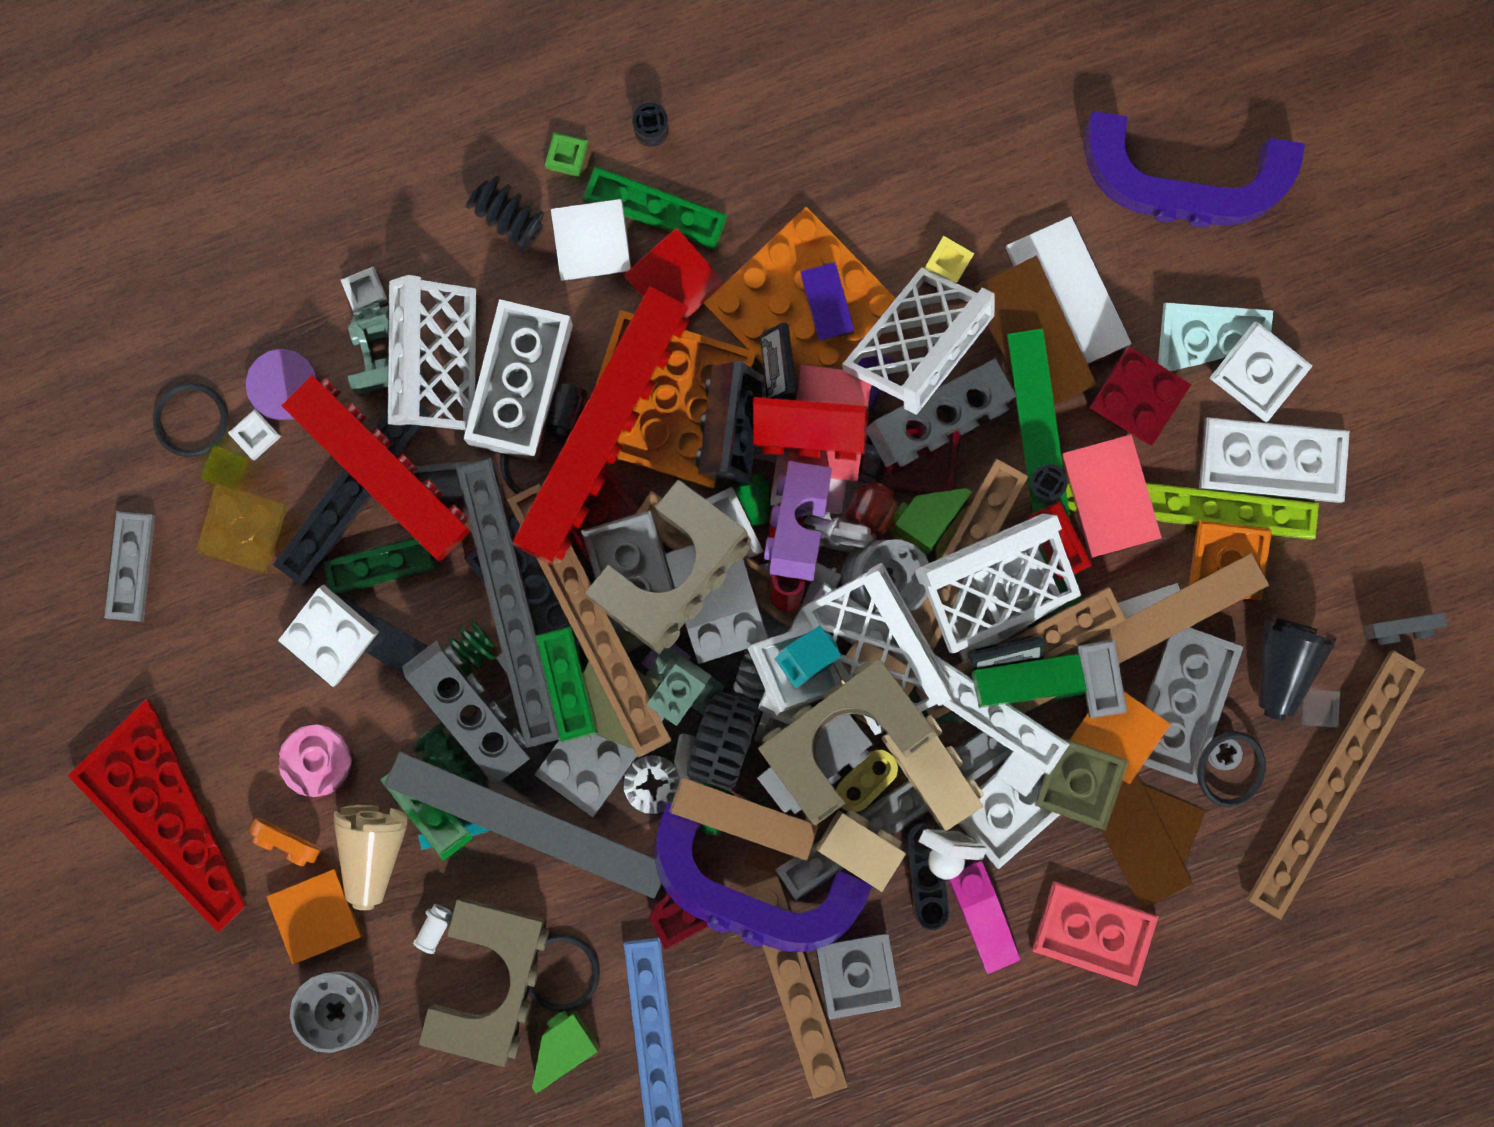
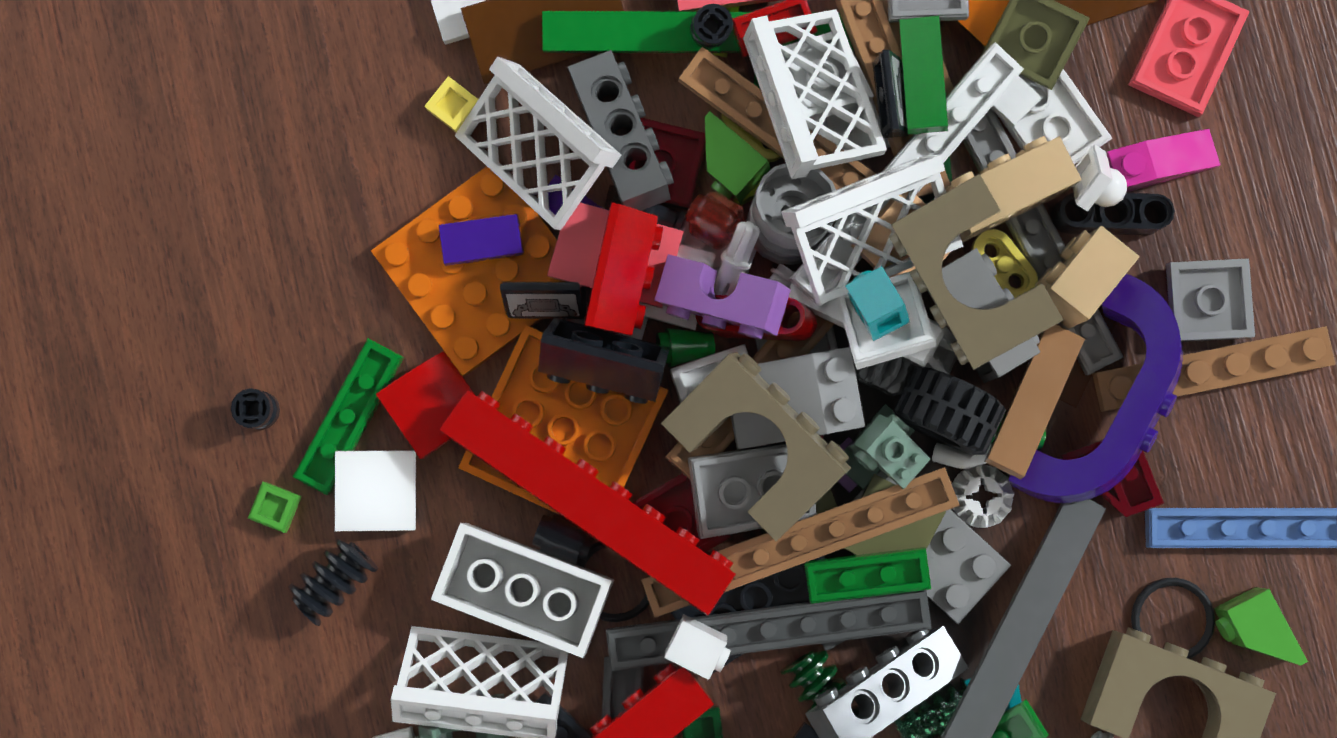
camera: 80 degrees left, 0 degrees up
(484, 538) = (697, 647): none -> white brick

